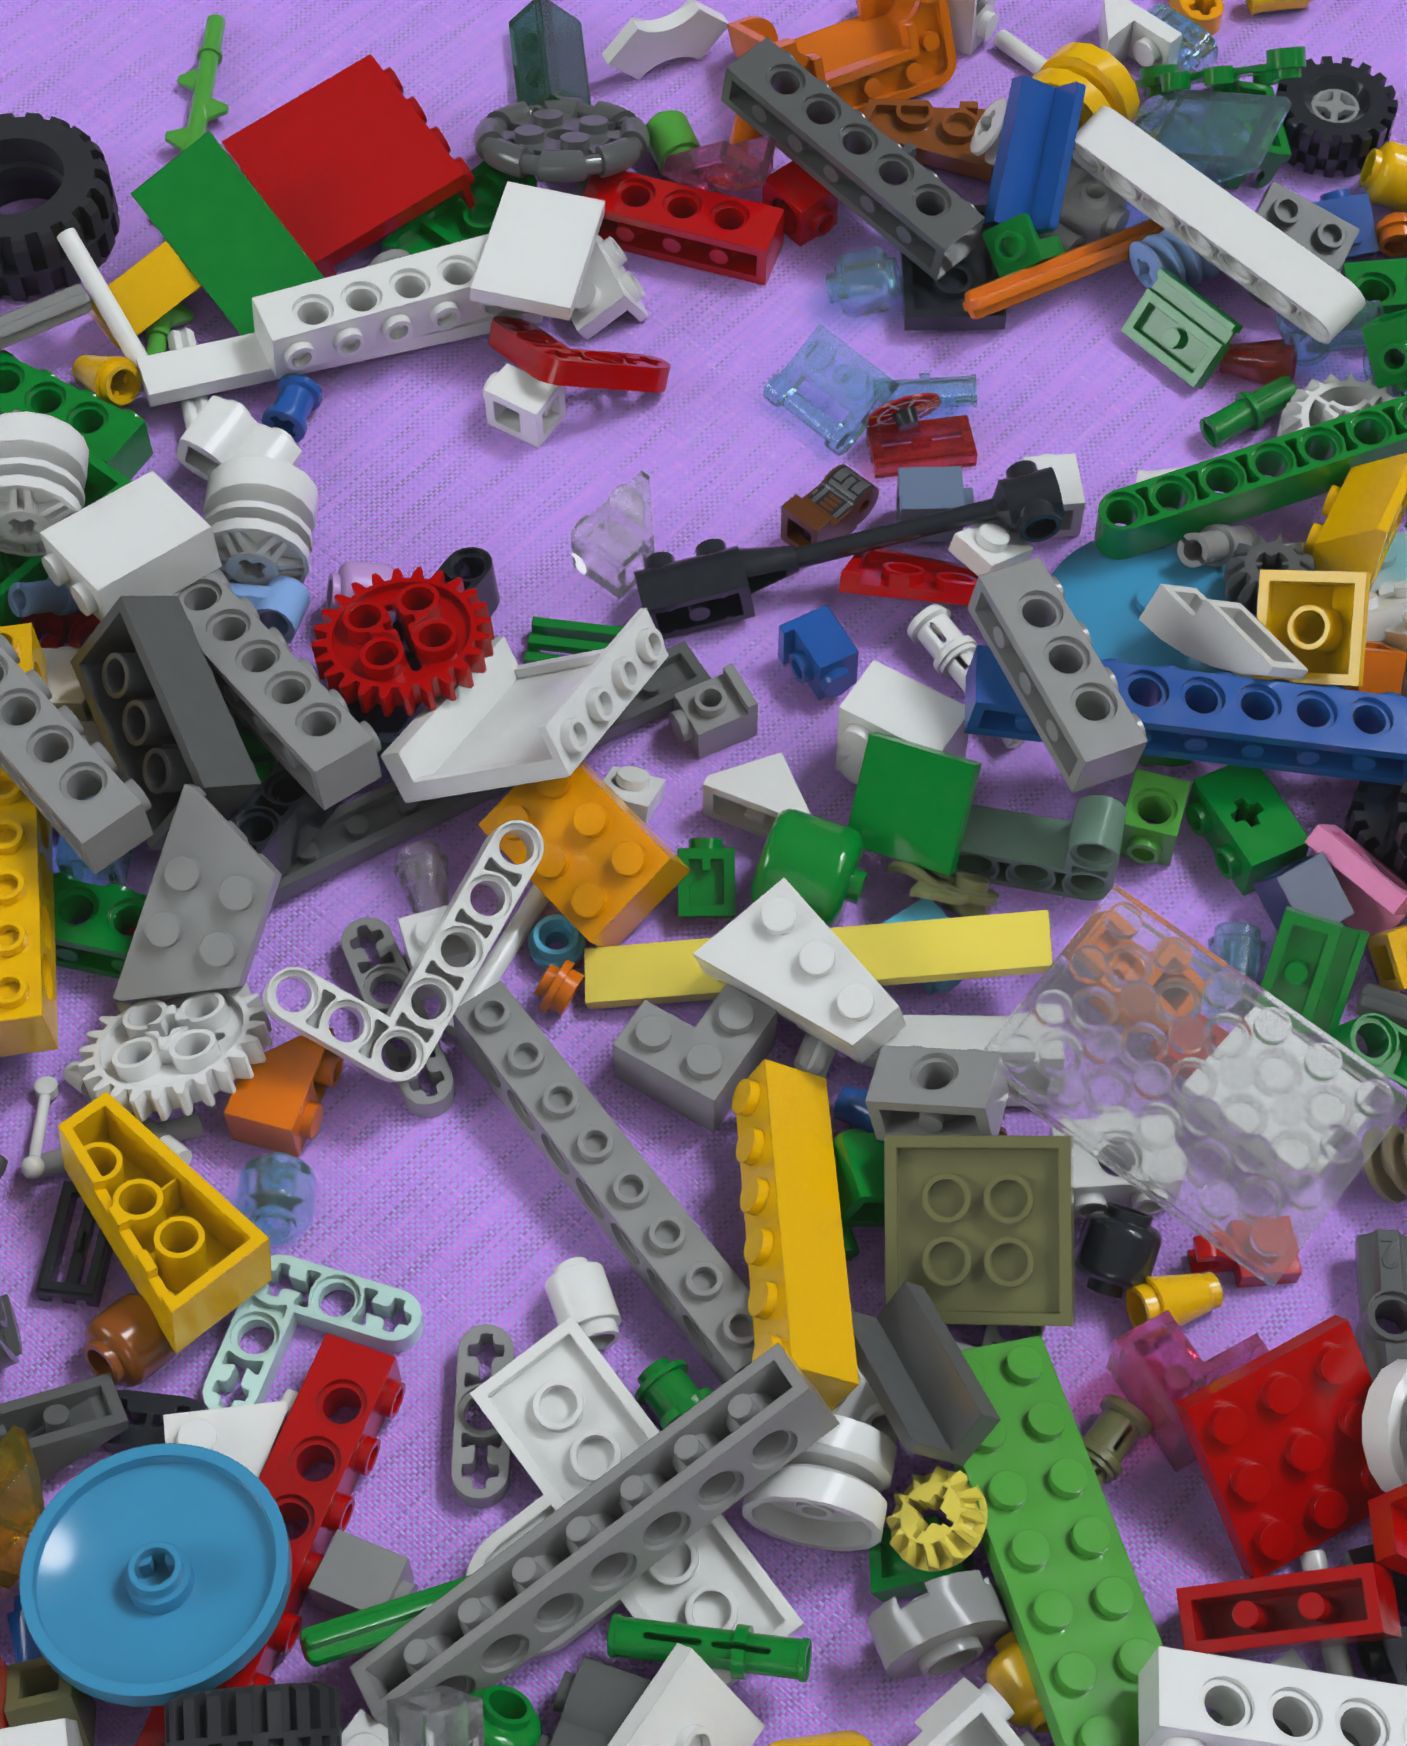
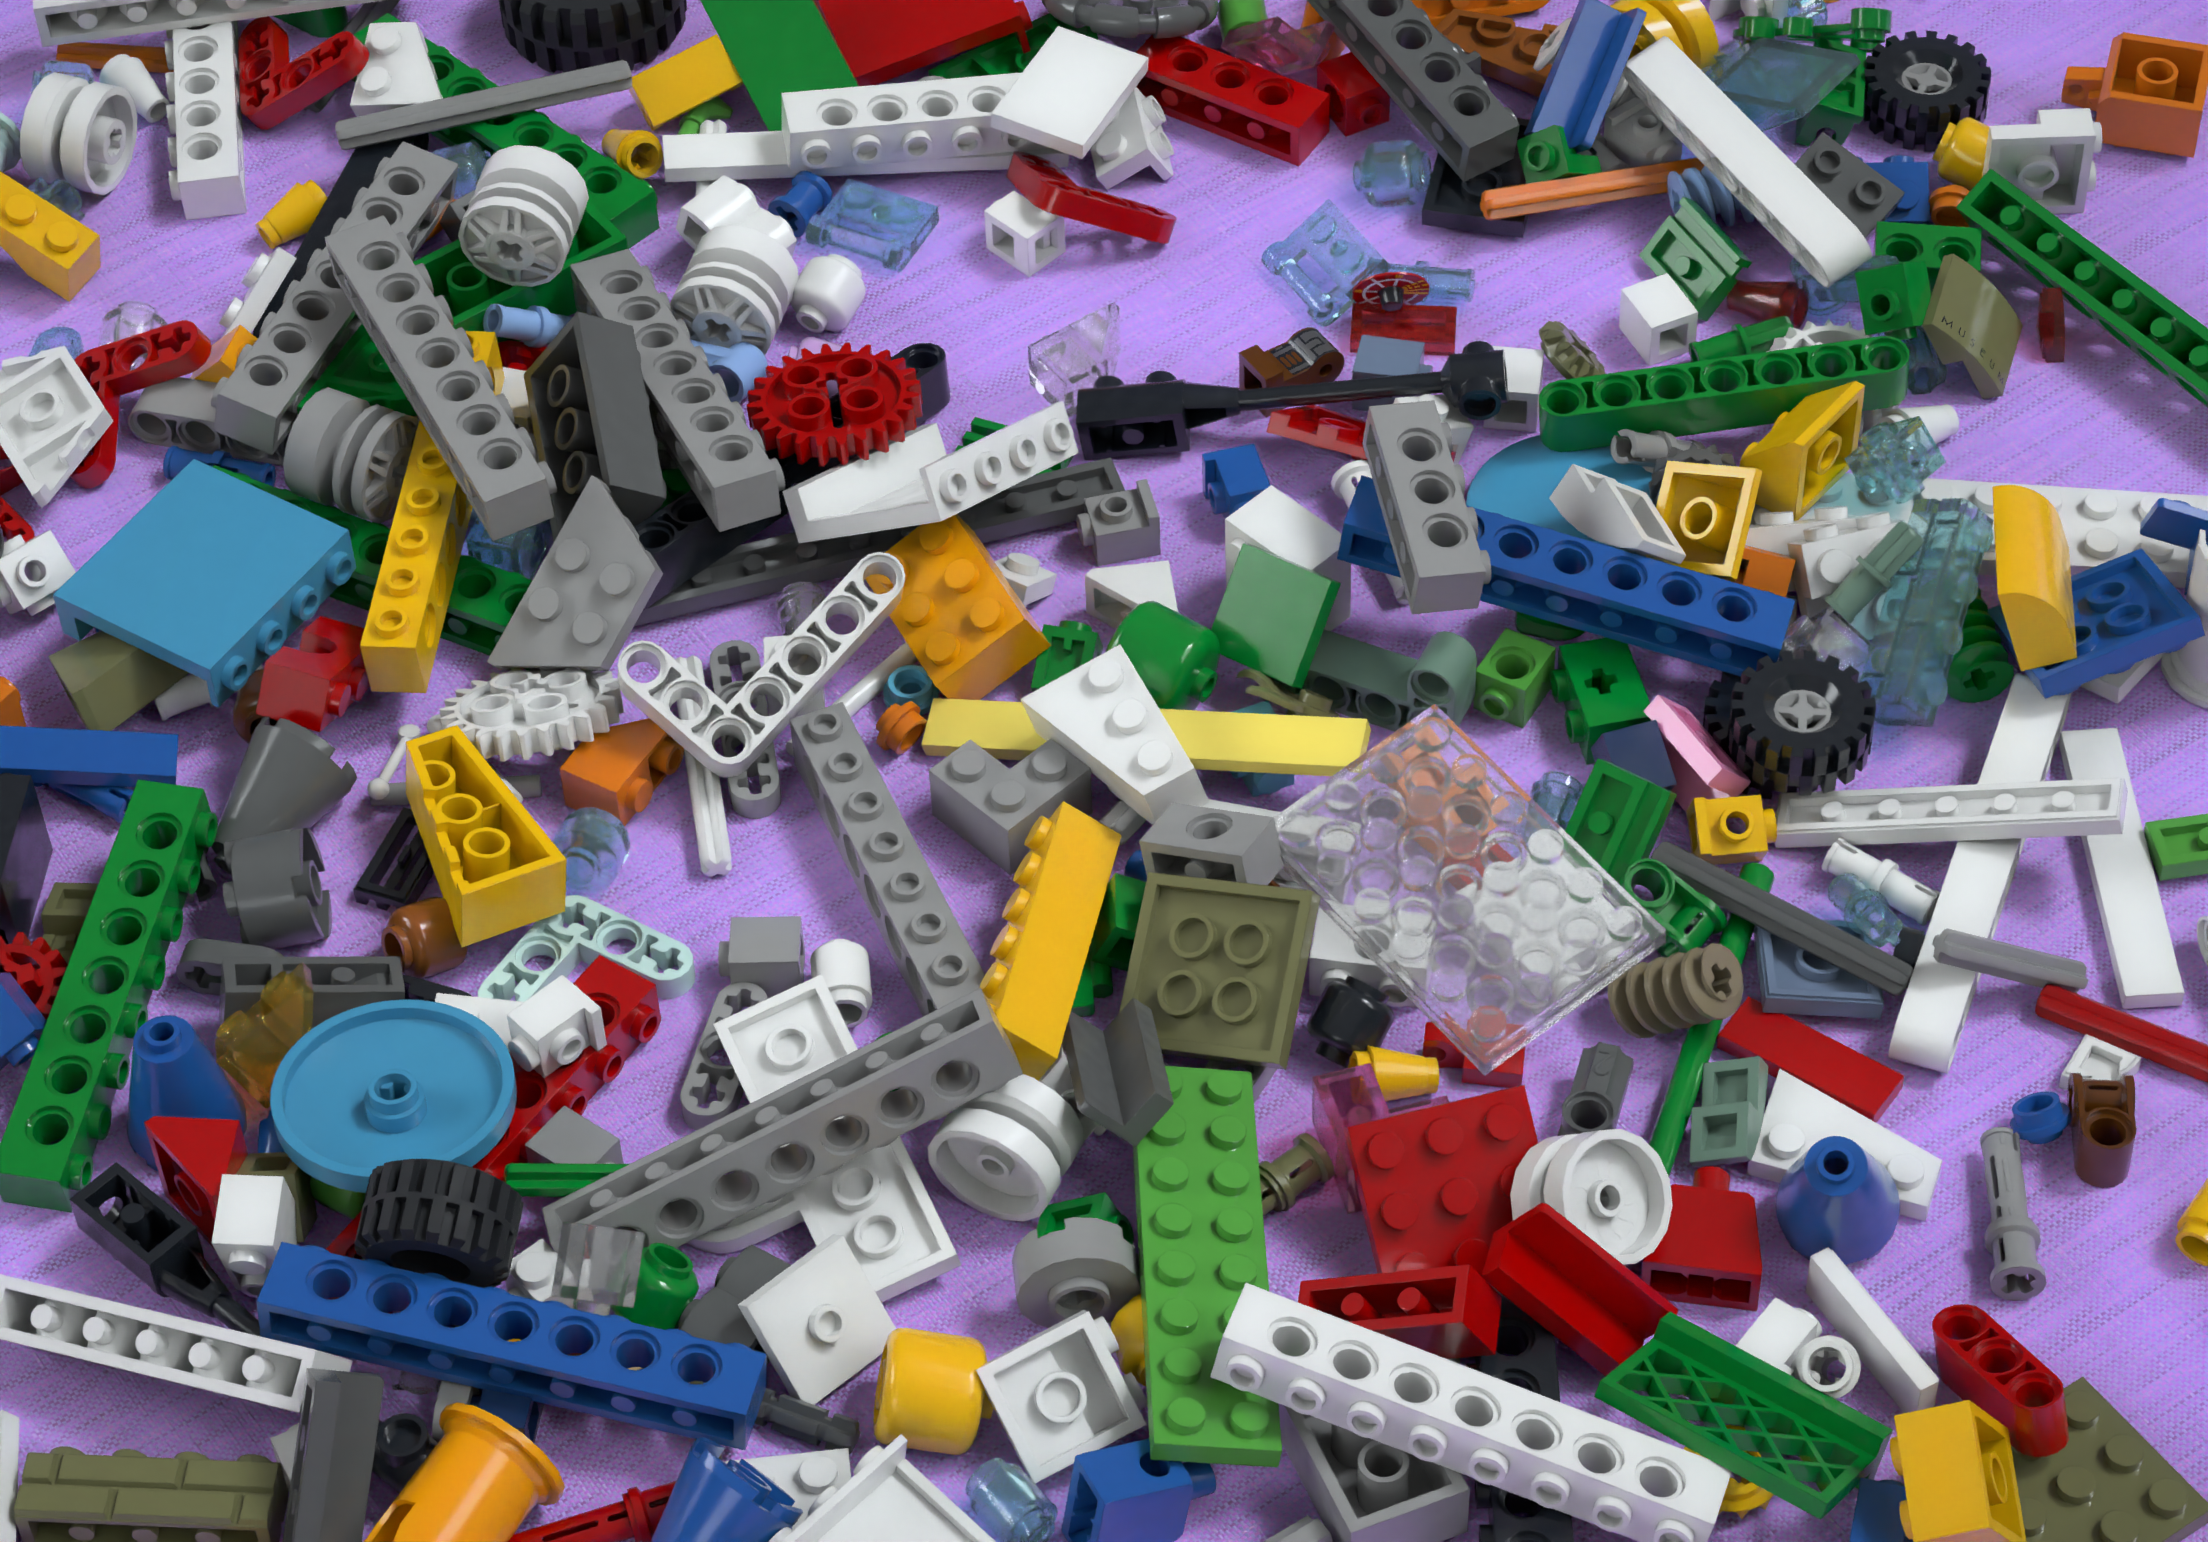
camera: 15 degrees right, 10 degrees down
(101, 295) = (643, 73): white bar -> none
(129, 545) = (605, 274): white brick -> none
(308, 1445) = (554, 1027): none -> white brick
(349, 504) = (828, 293): none -> white head
(371, 407) = (874, 224): none -> clear light blue plate
(374, 1094) = (705, 794): none -> white axle
(495, 1289) = (764, 953): none -> light grey brick
(722, 1649) = (885, 1258): green pin -> none
(935, 1545) = (1083, 1199): light yellow gear -> none
(1098, 453) = (1568, 351): none -> olive gear
(1164, 397) = (1657, 319): none -> white brick

